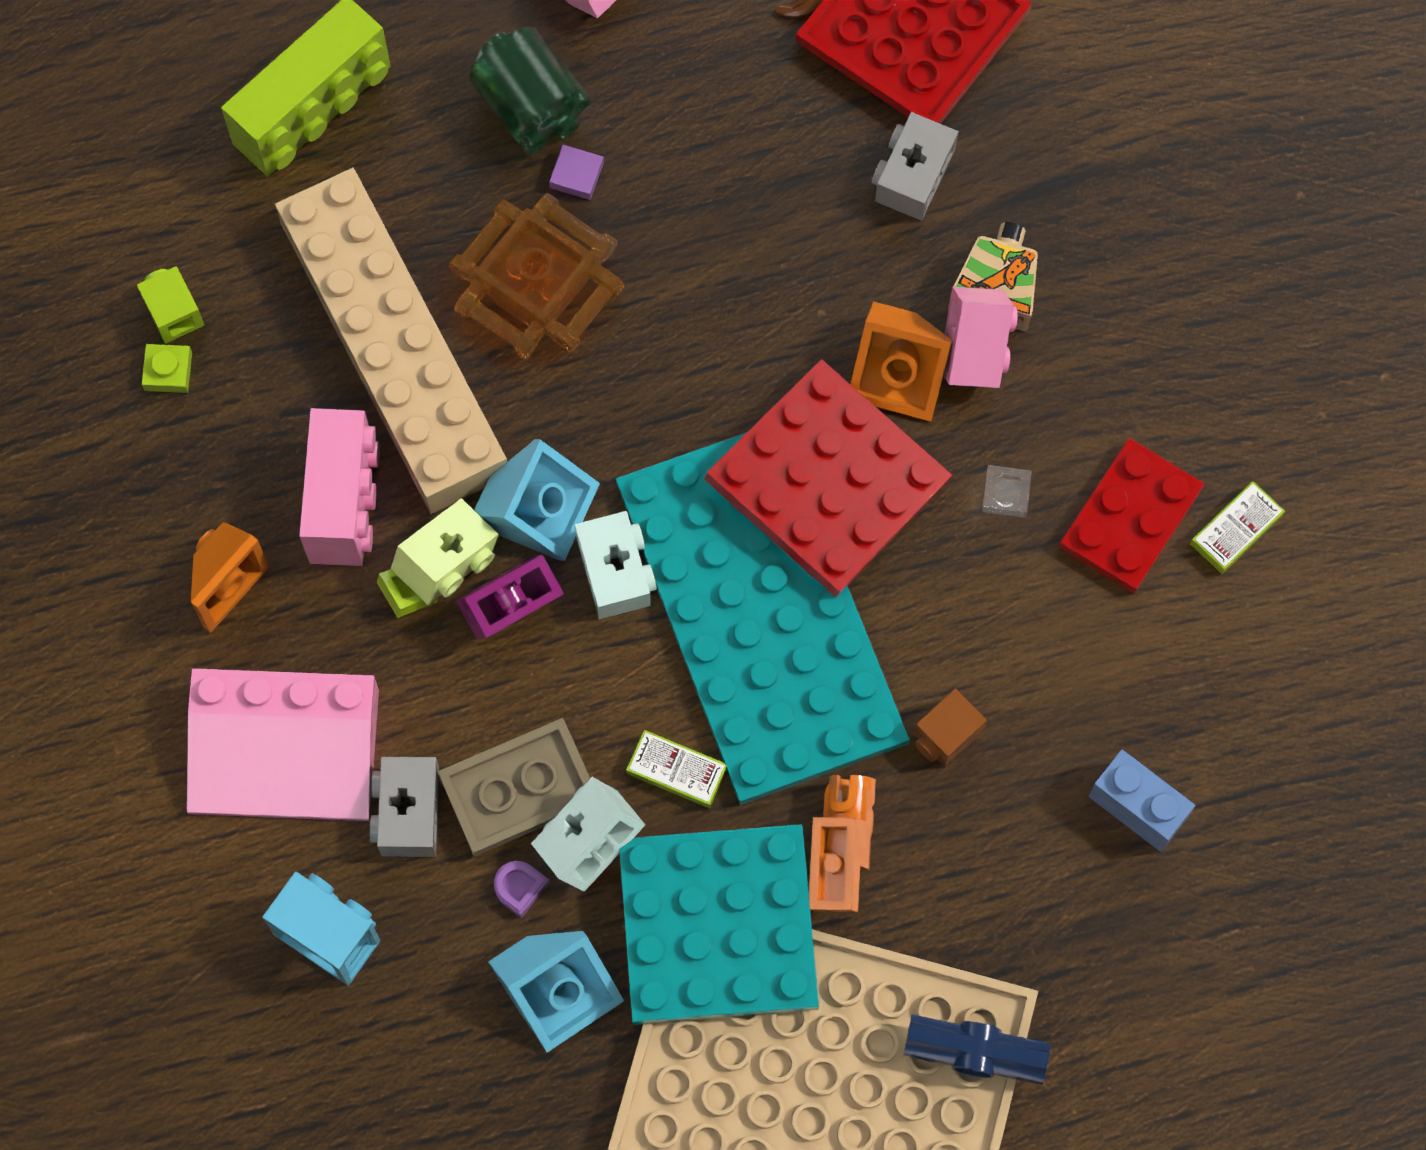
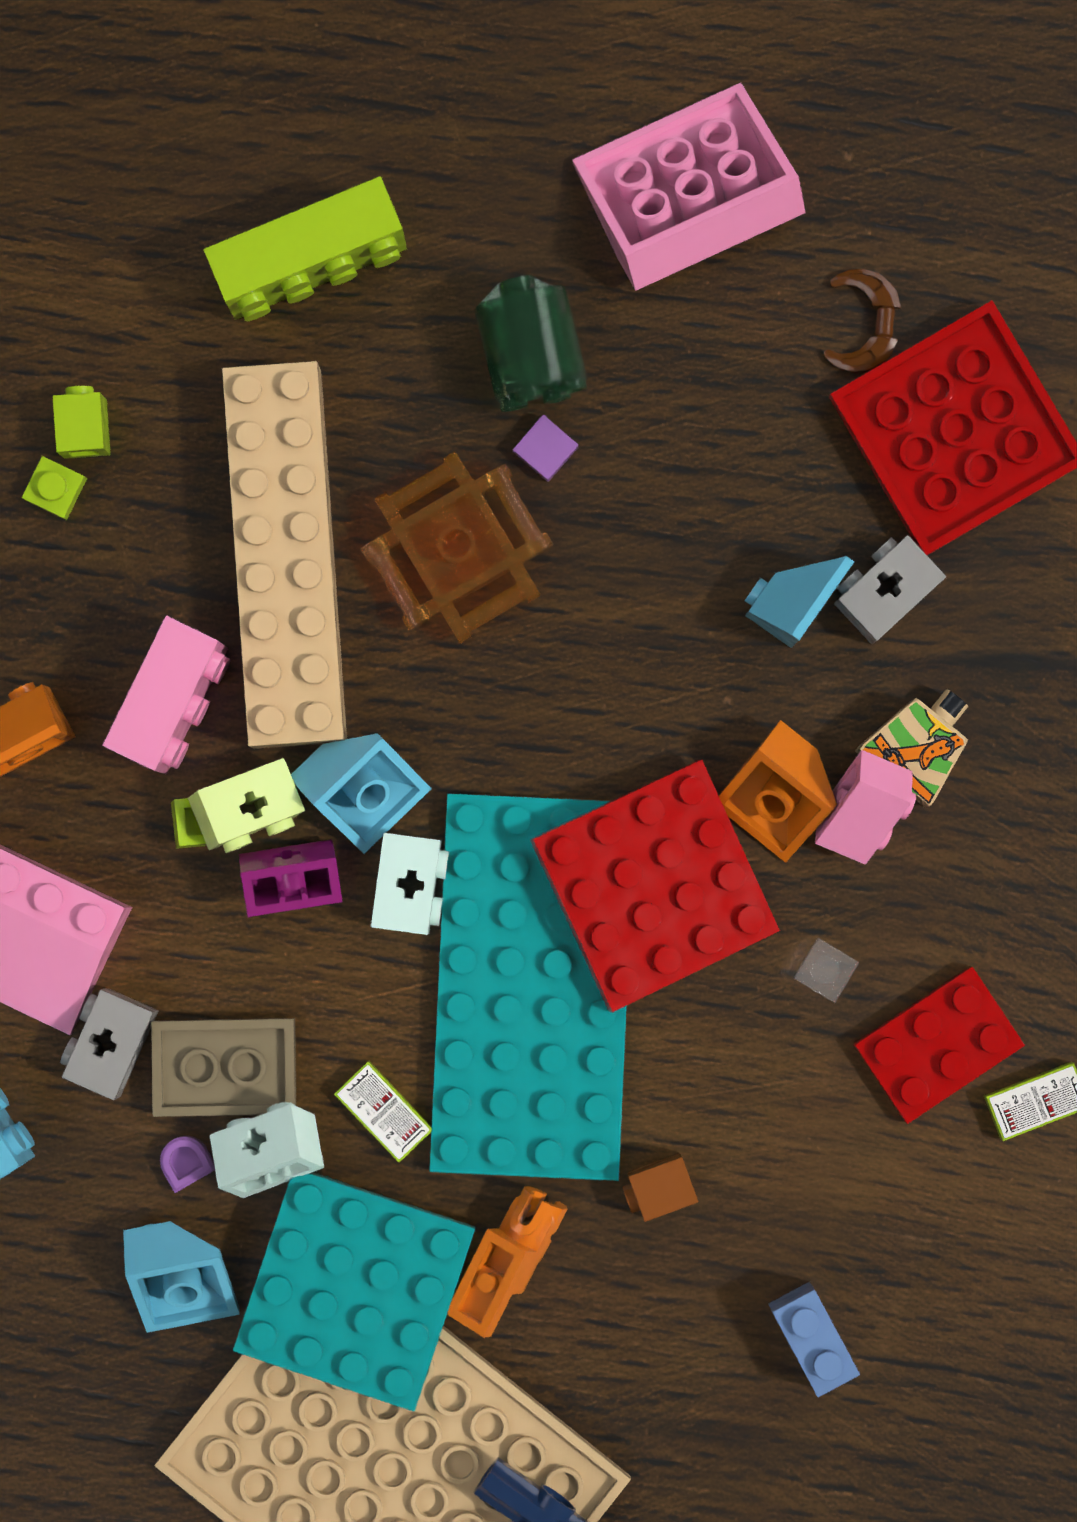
camera: 25 degrees right, 15 degrees up
(840, 199) = (794, 598): none -> medium azure slope

